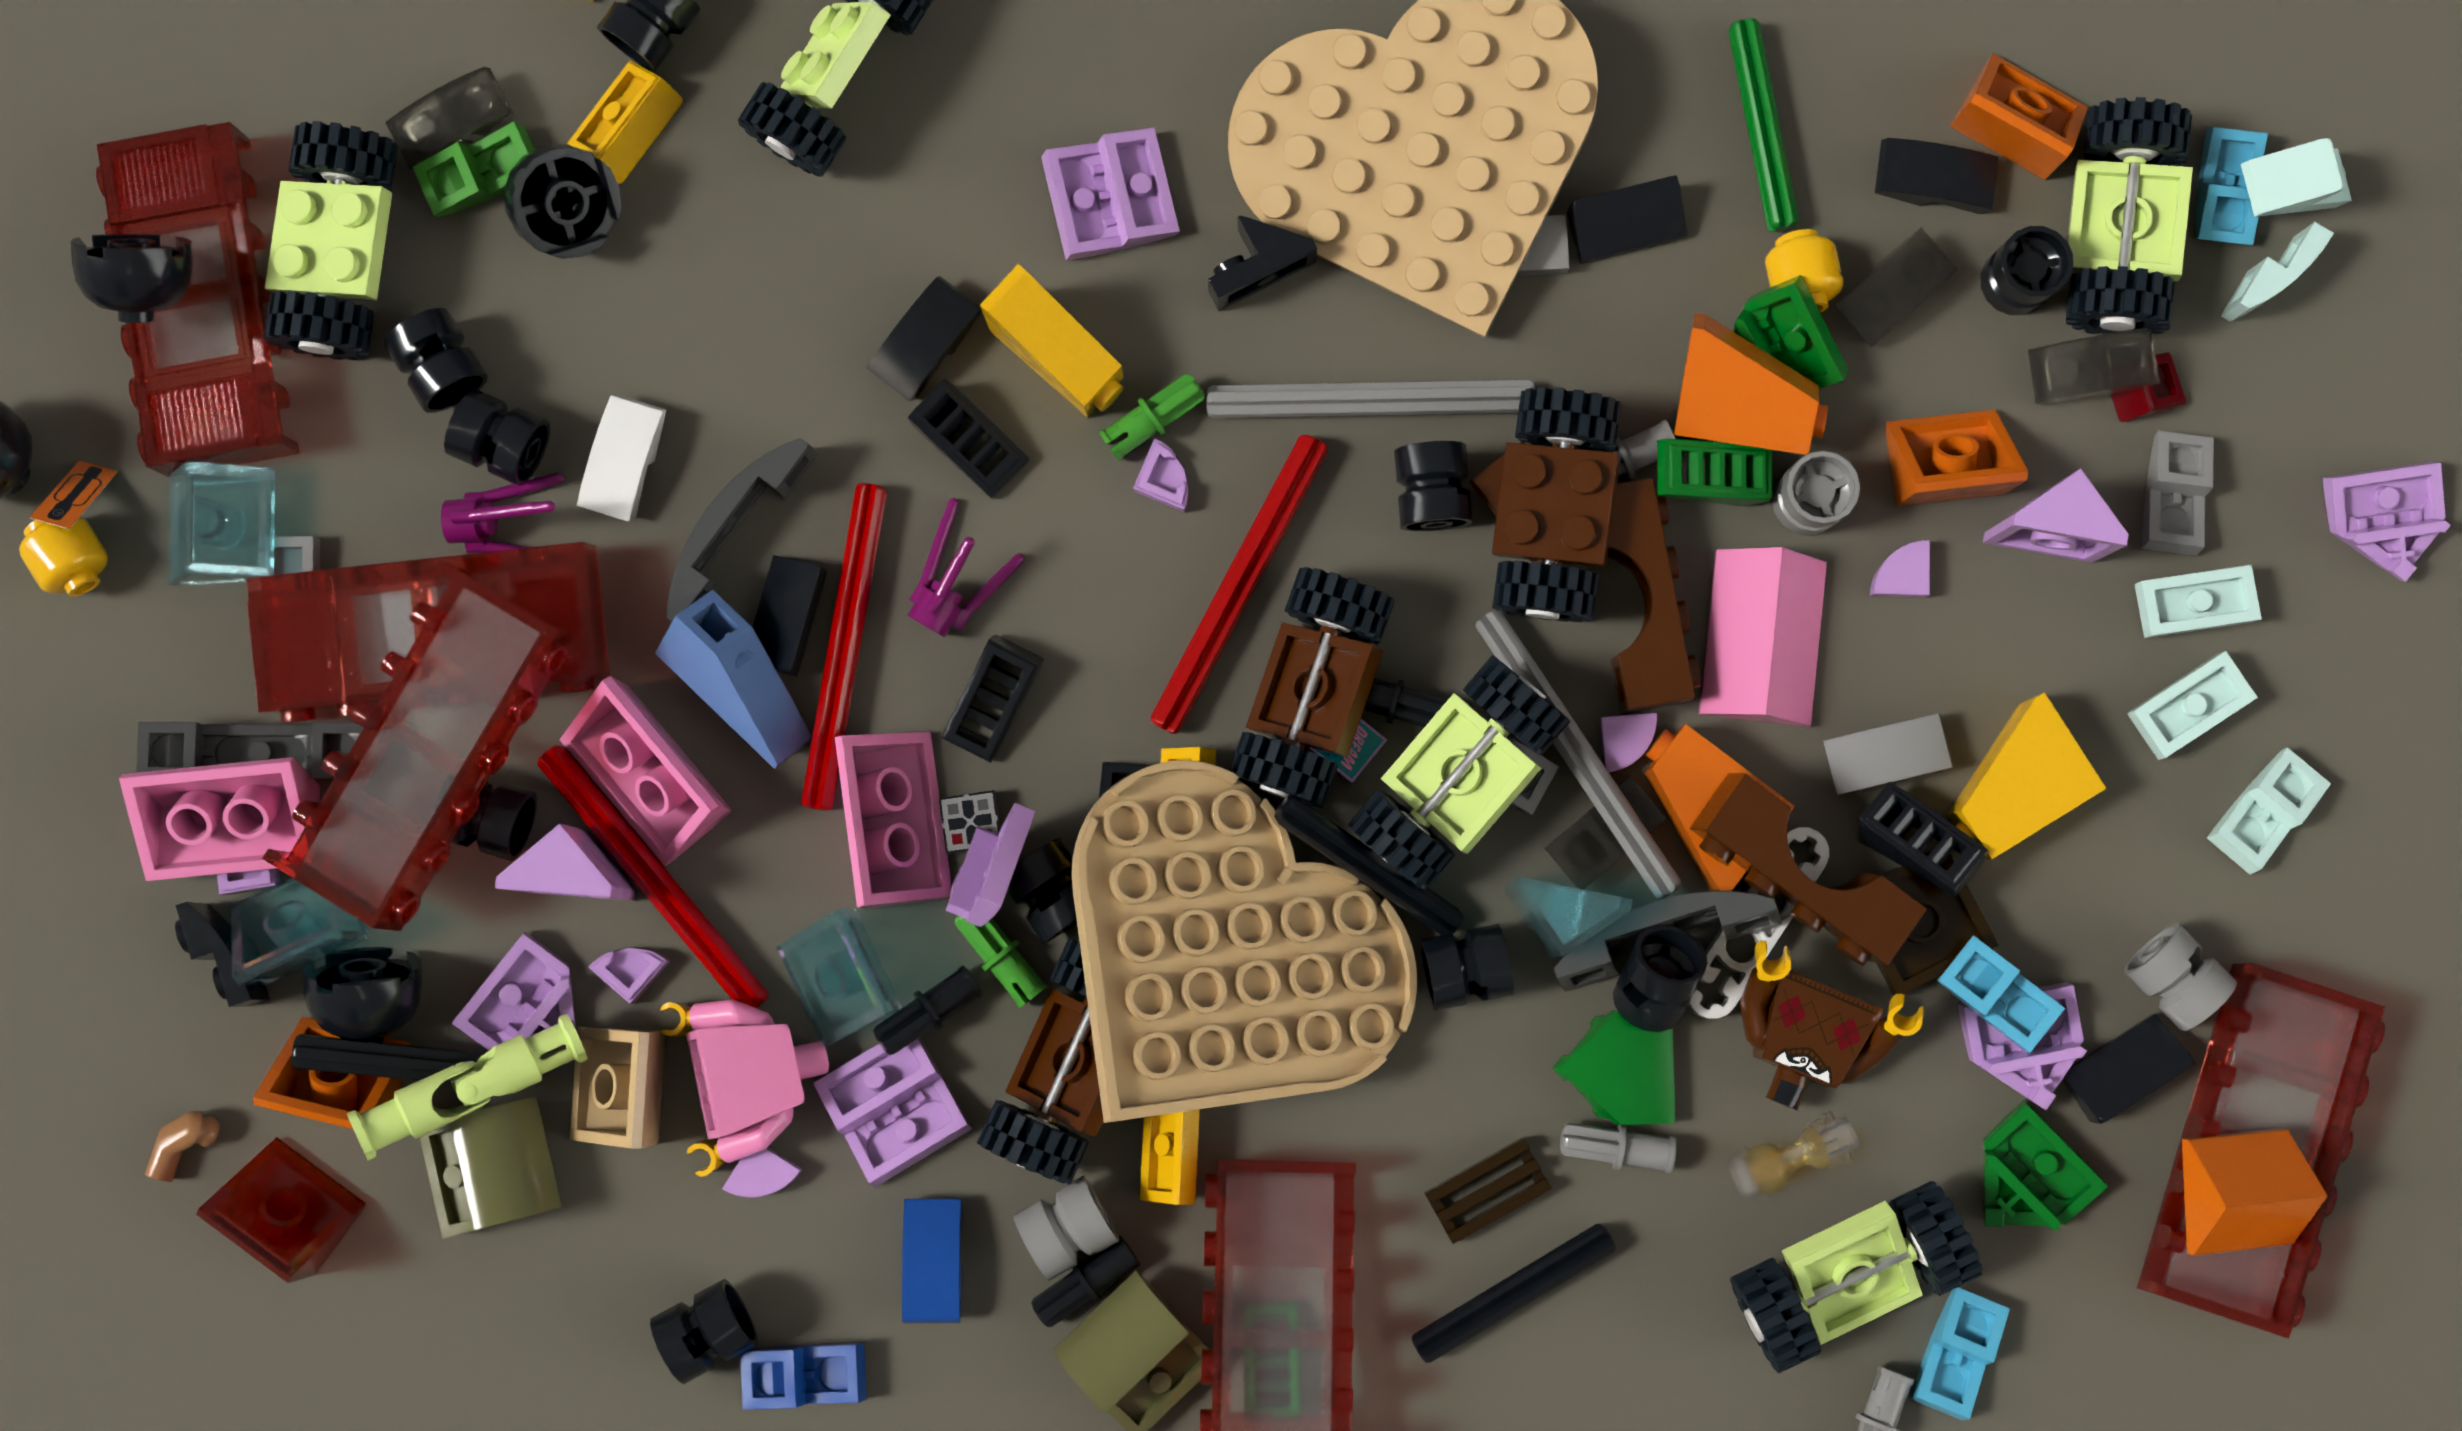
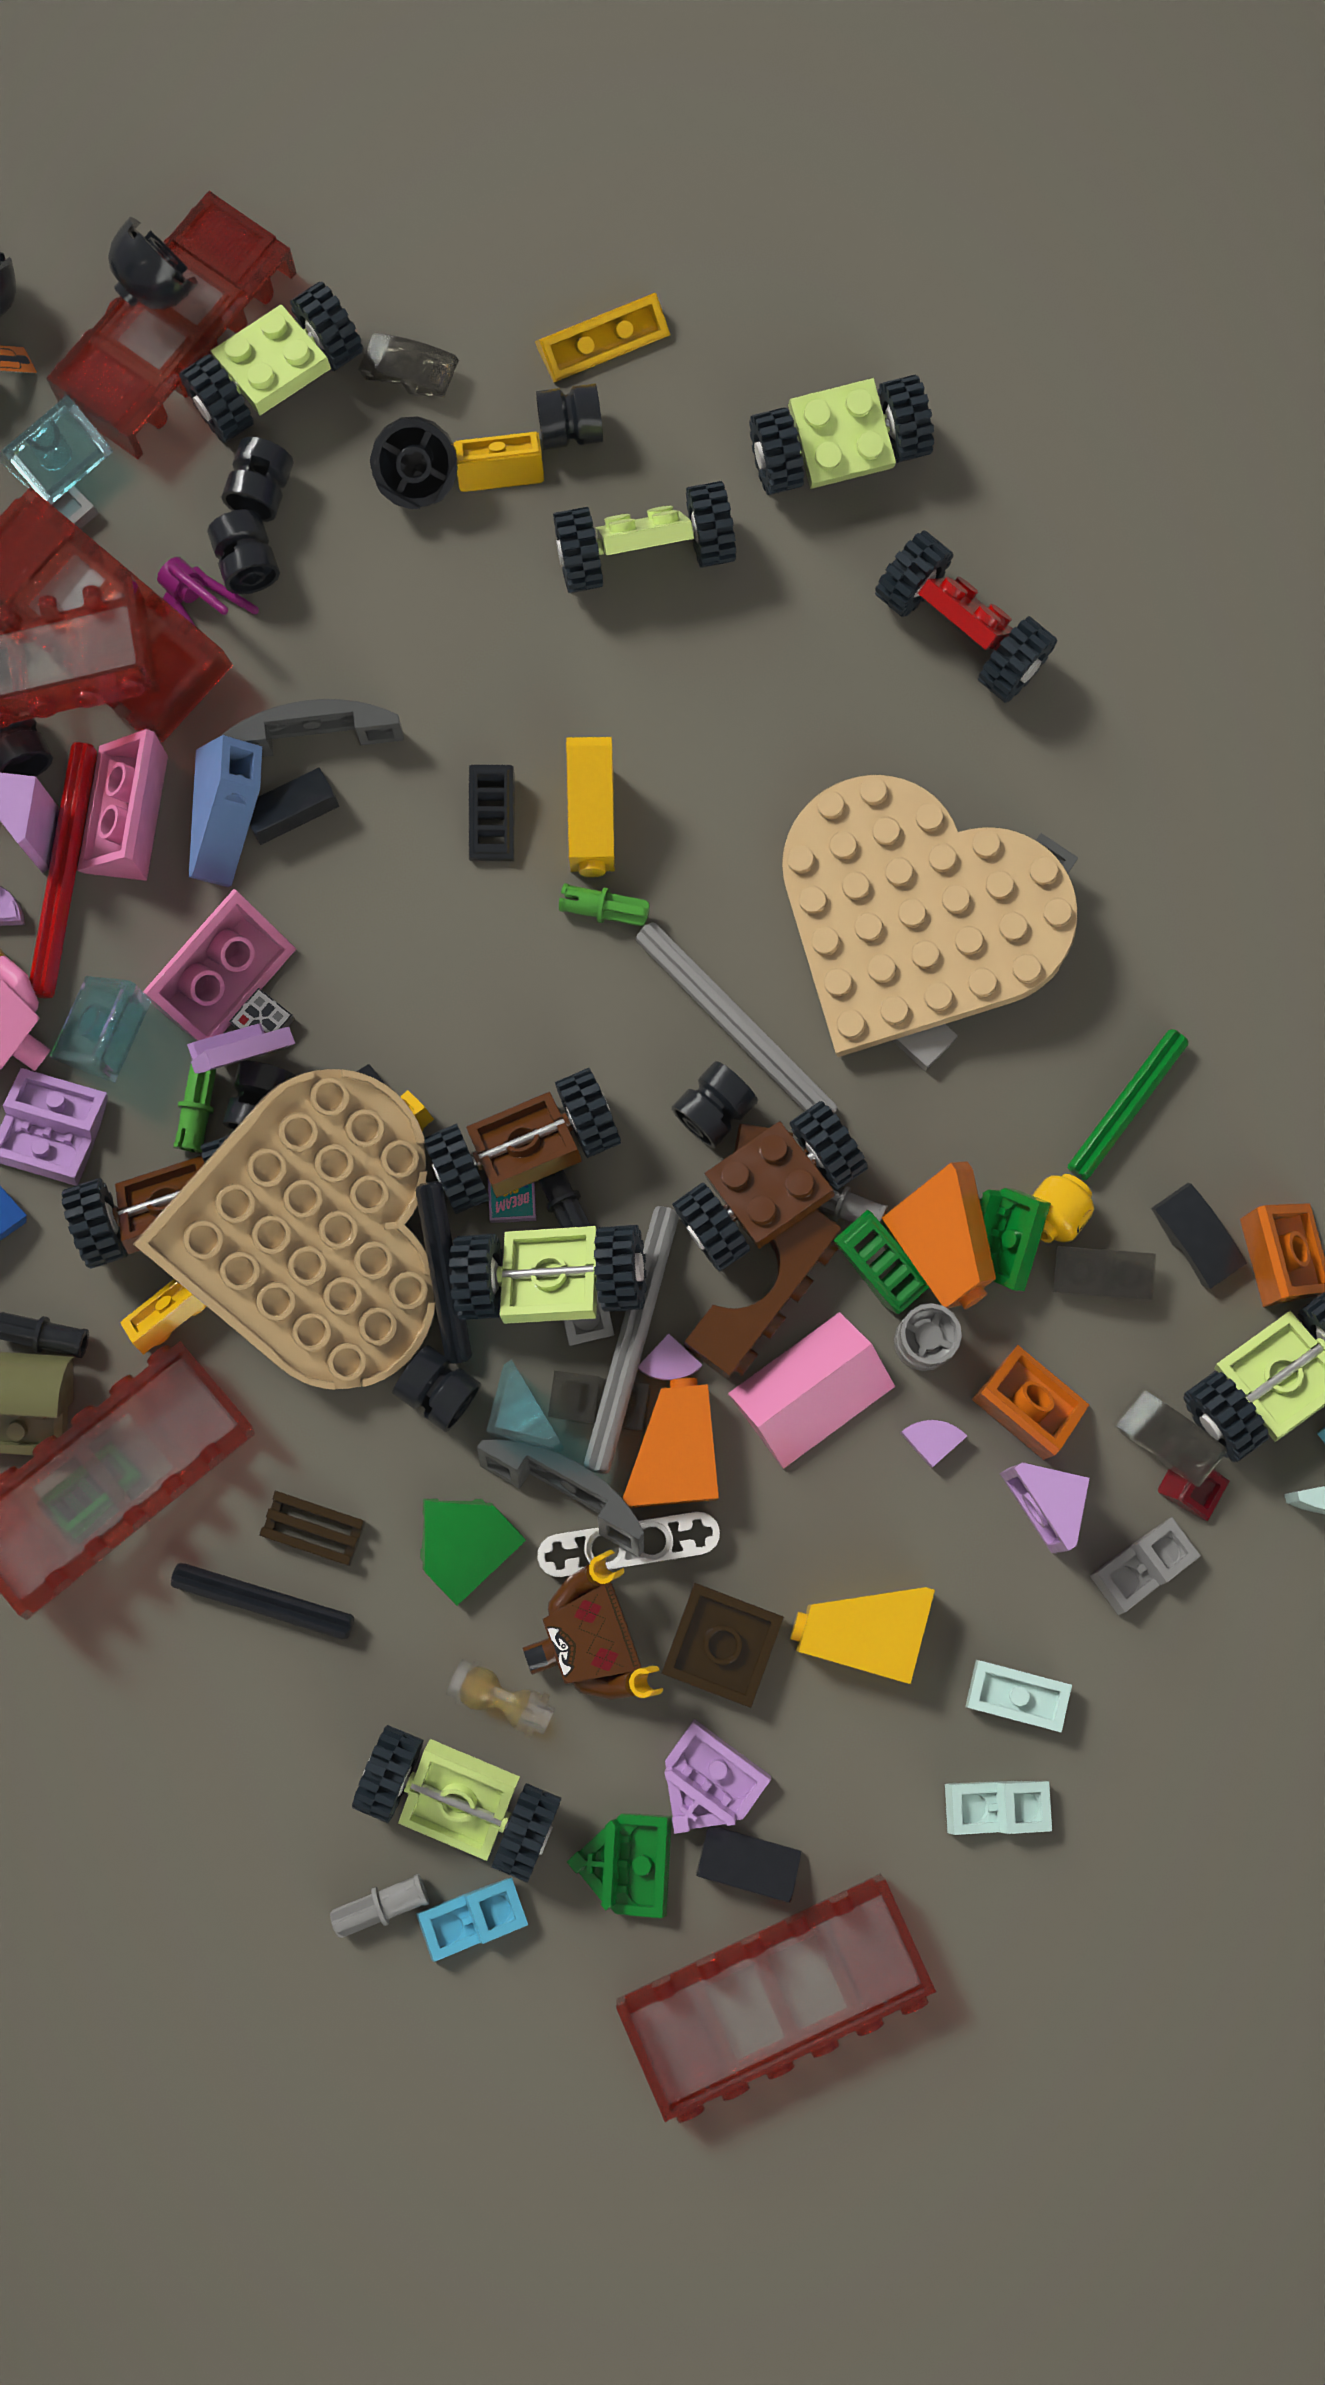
camera: 45 degrees right, 5 degrees down
(473, 173) = (382, 401): bright green slope -> none
(620, 457) = (298, 628): white slope -> none
(844, 645) = (309, 848): red axle -> none
(924, 338) = (526, 734): black slope -> none
(927, 1011) = (122, 1093): black axle -> none
(935, 602) = (375, 881): magenta plant -> none
(1014, 654) = (371, 974): black slope -> none
(1070, 1225) = (52, 1287): light grey wheel -> none
(1110, 194) = (716, 764): lavender slope -> none
(1163, 477) = (574, 946): lavender tile -> none
(1239, 584) = (550, 1046): red axle -> none
(1273, 258) = (764, 890): black slope -> none
(1618, 1146) = (410, 1583): light grey axle -> none
(1627, 219) = (991, 1075): black slope -> none
(1659, 978) = (534, 1510): black wheel -> none
(1750, 828) = (689, 1599): reddish brown arch -> none
(1888, 754) = (809, 1531): light grey slope -> none
(1910, 812) = (770, 1566): black slope -> none
(2000, 994) = (720, 1736): medium azure slope -> none
(2026, 270) = (1190, 1341): black wheel -> none
(2183, 980) = (837, 1843): light grey wheel -> none
(2198, 601) = (1088, 1640): light aqua plate -> none
(2246, 1191) = (734, 2007): orange slope -> none
(2388, 513) = (1261, 1713): lavender slope -> none

